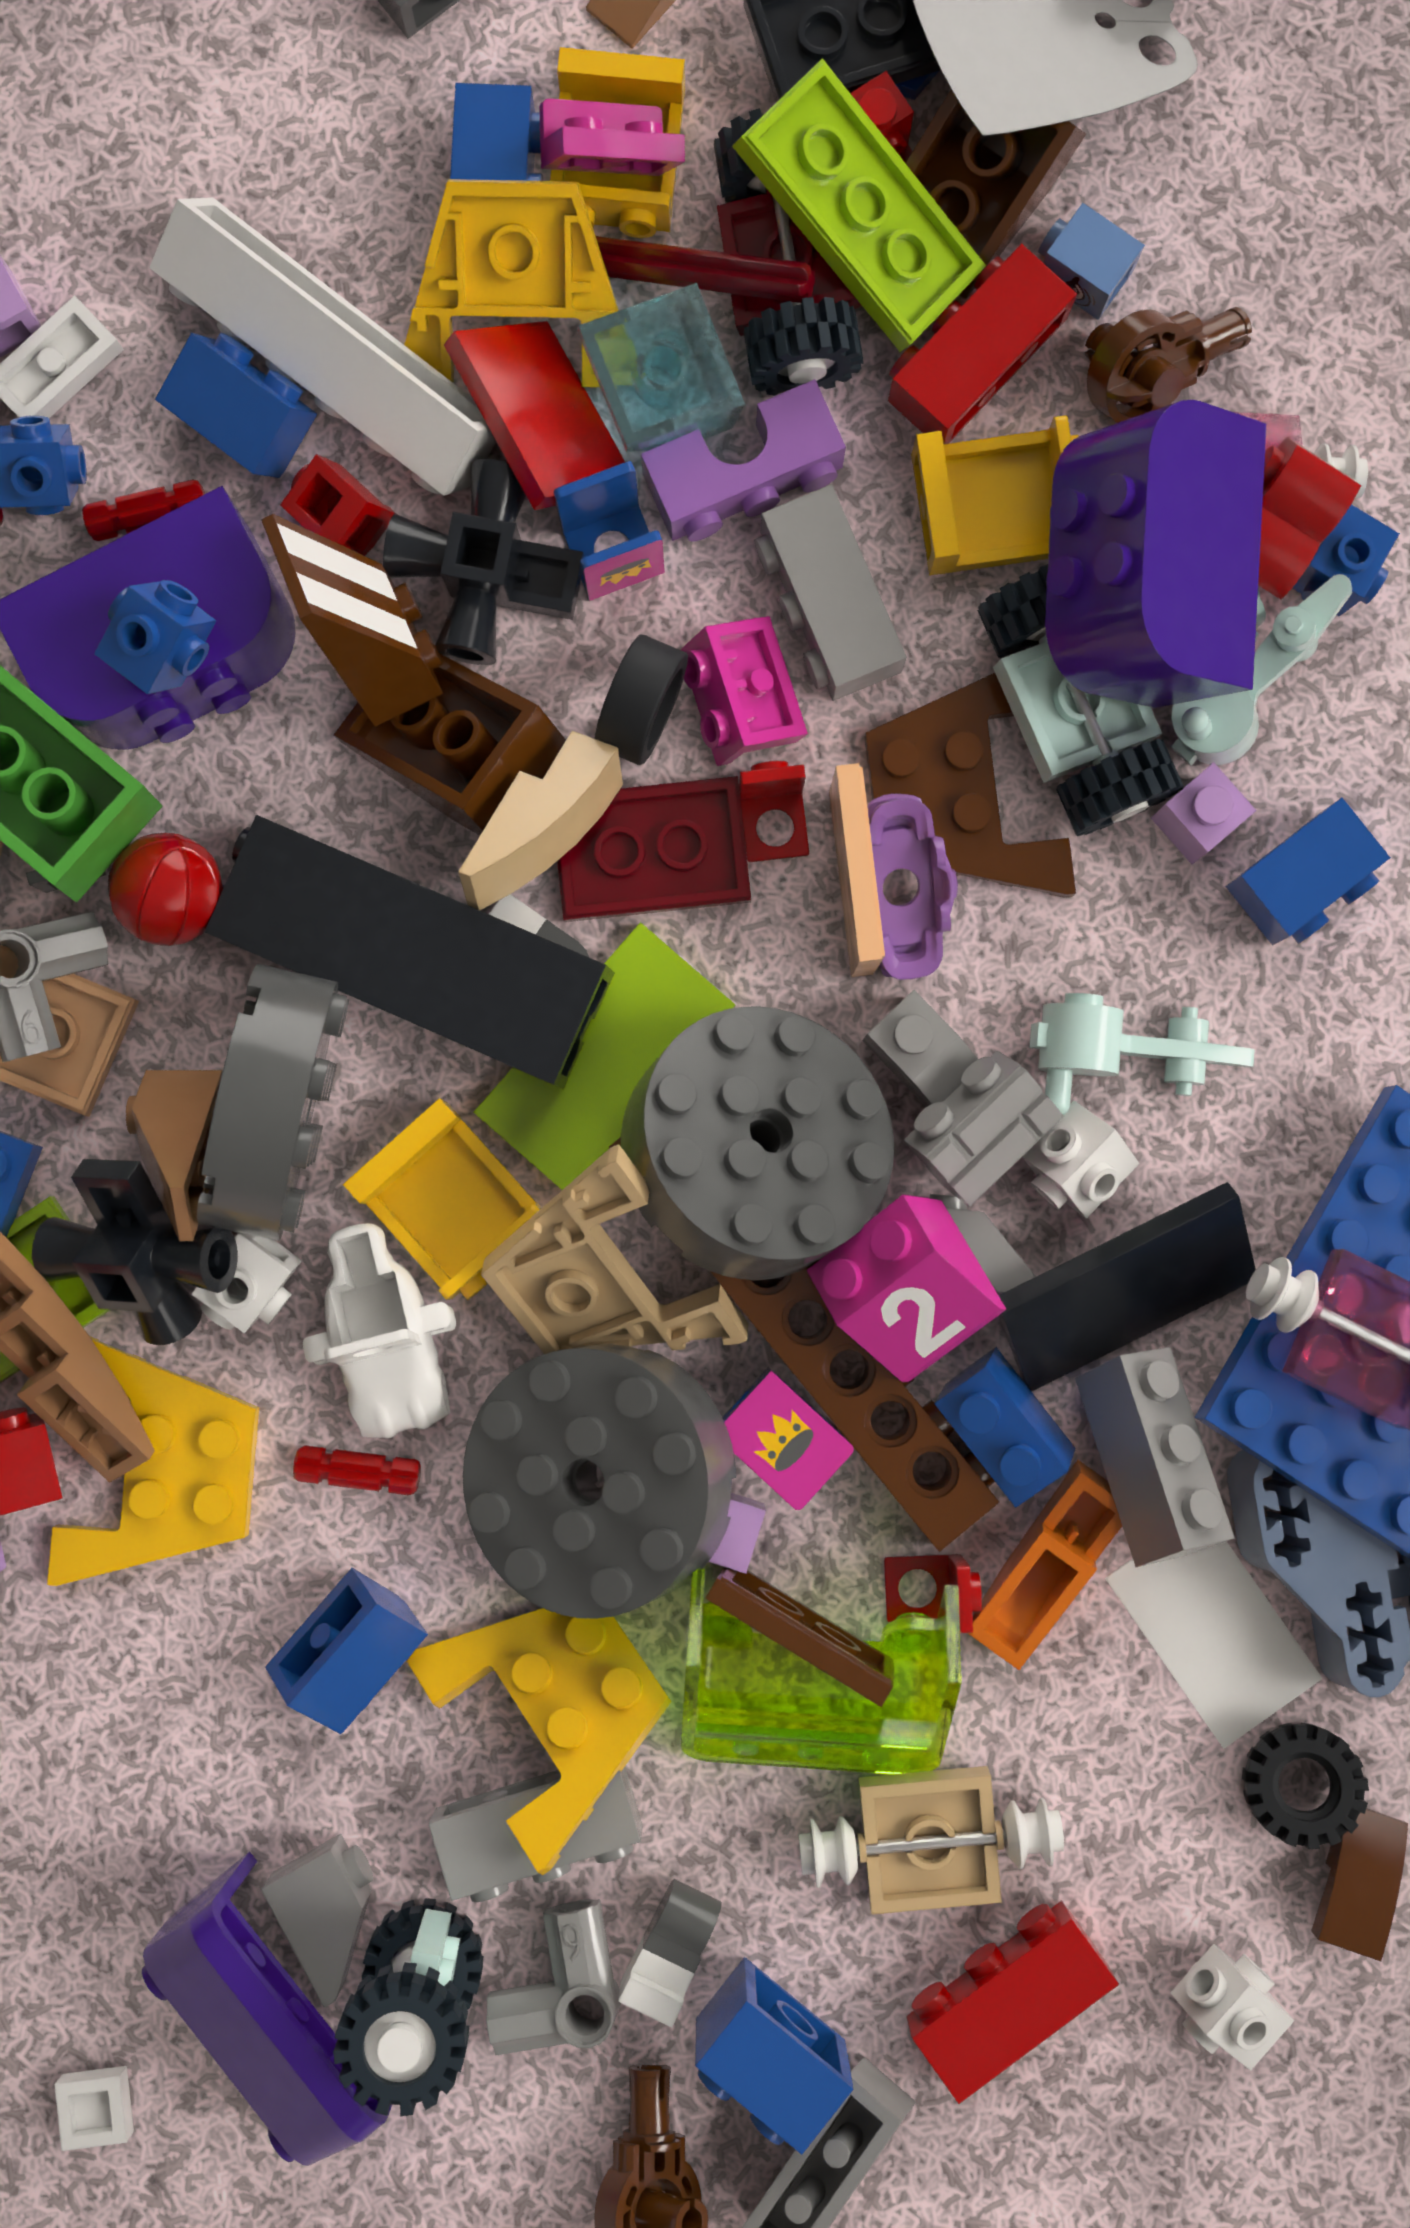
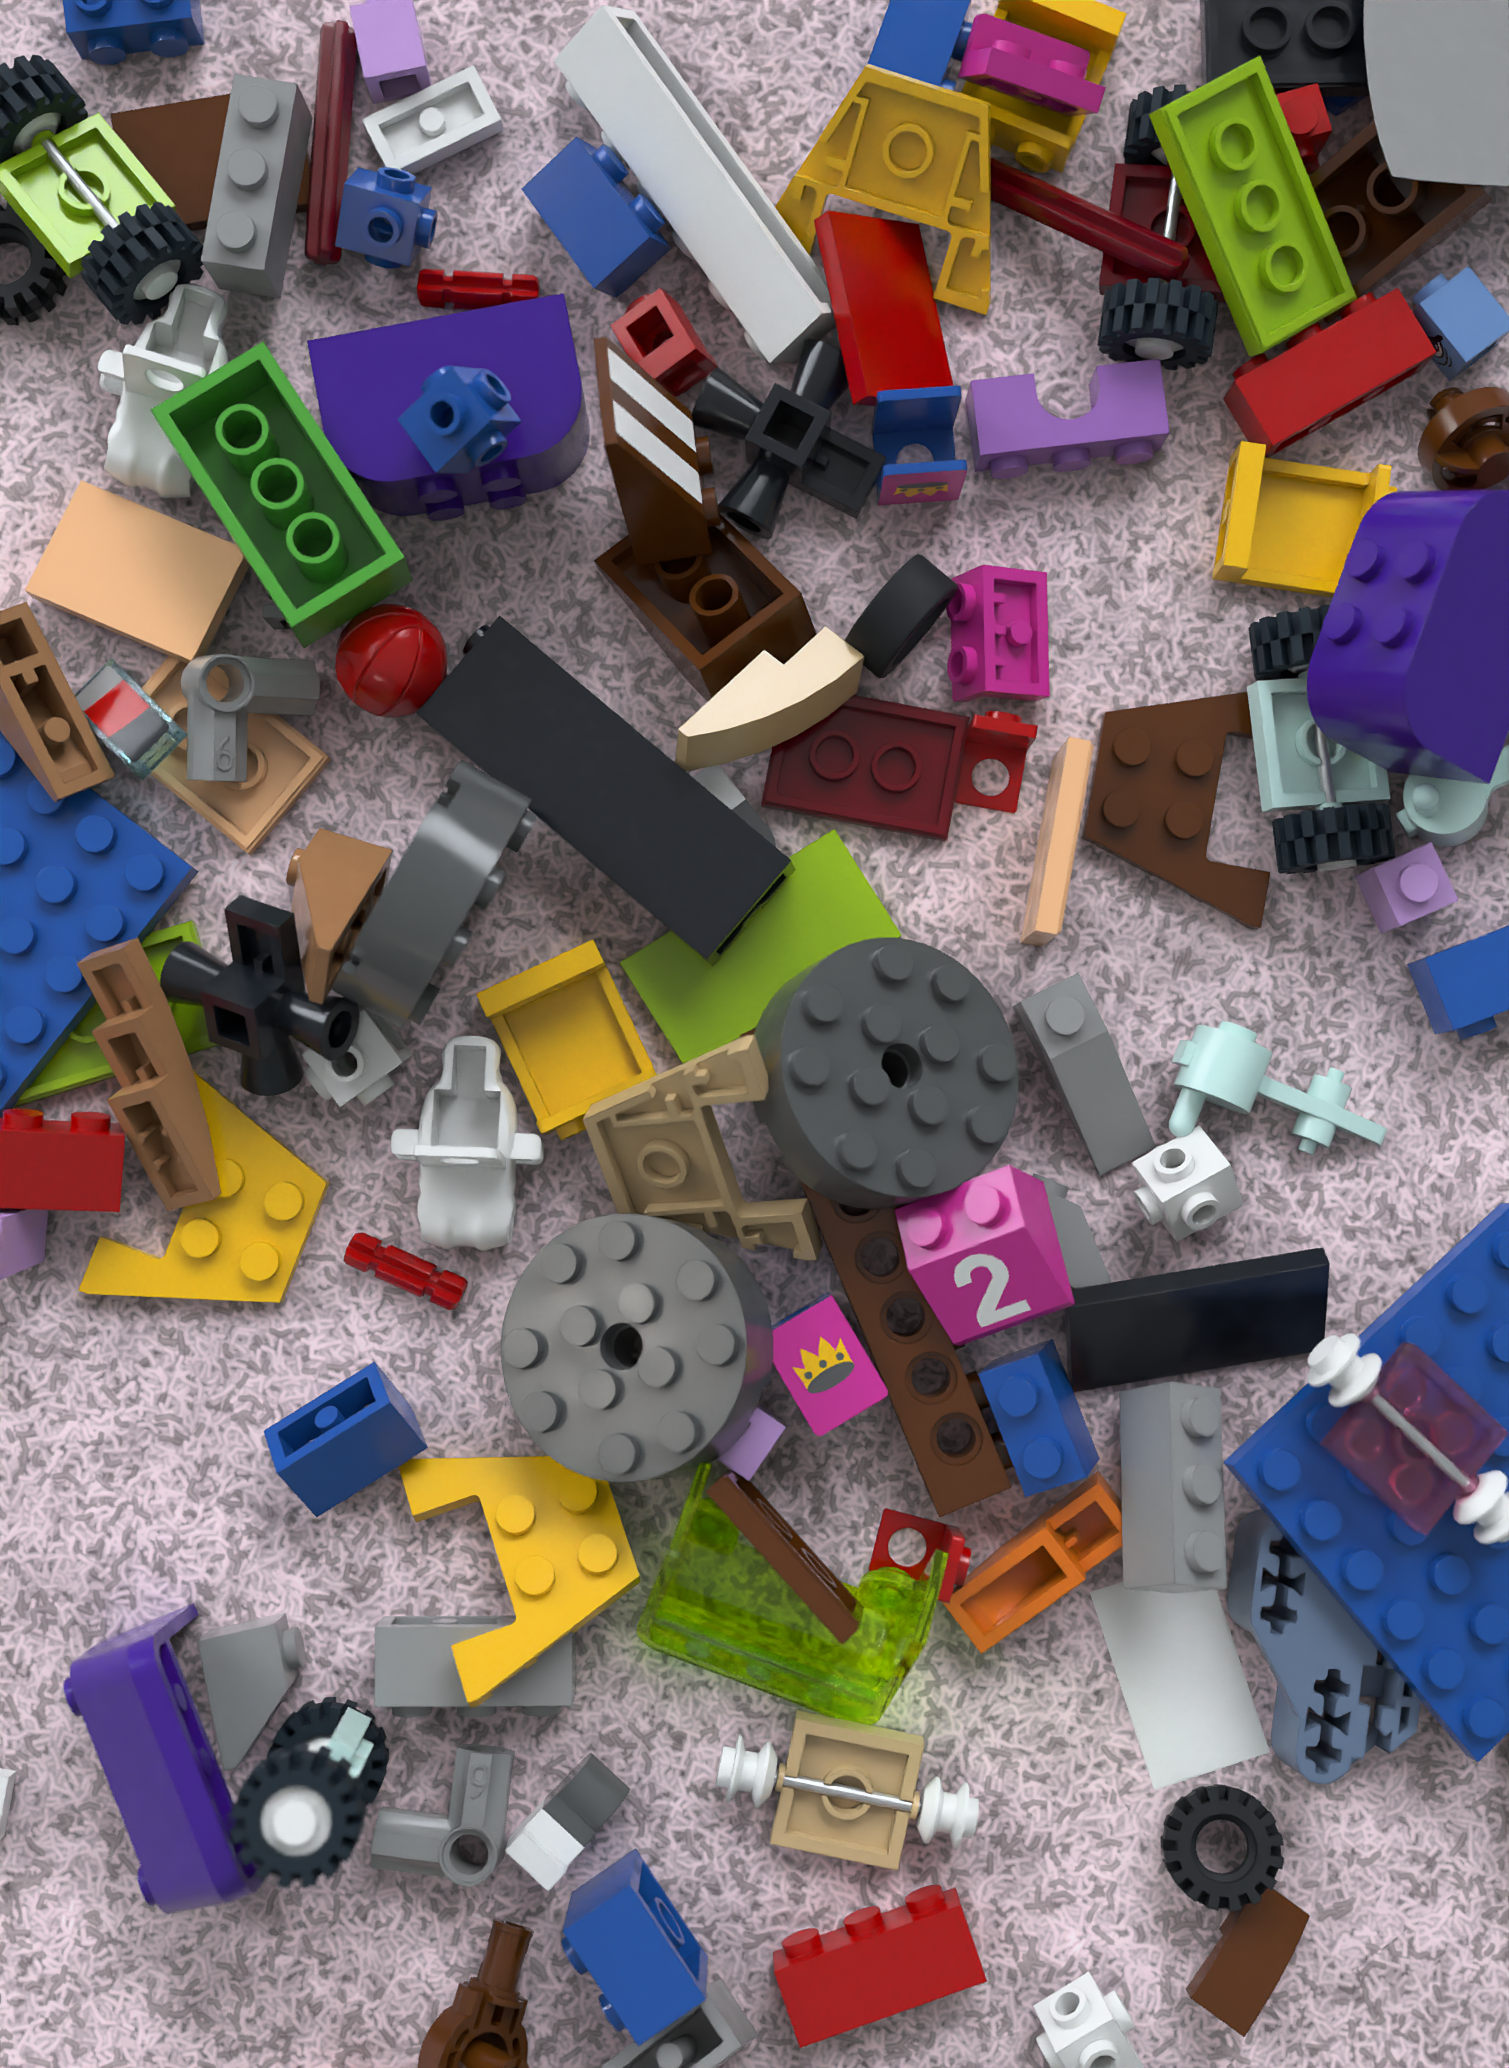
camera: 10 degrees right, 0 degrees up
(663, 370) = (1016, 307): clear light blue slope -> none
(829, 594) = (1110, 568): light grey brick -> none
(906, 840) = (1093, 916): medium lavender piece -> none
(982, 1126) = (1104, 1123): light grey brick -> none

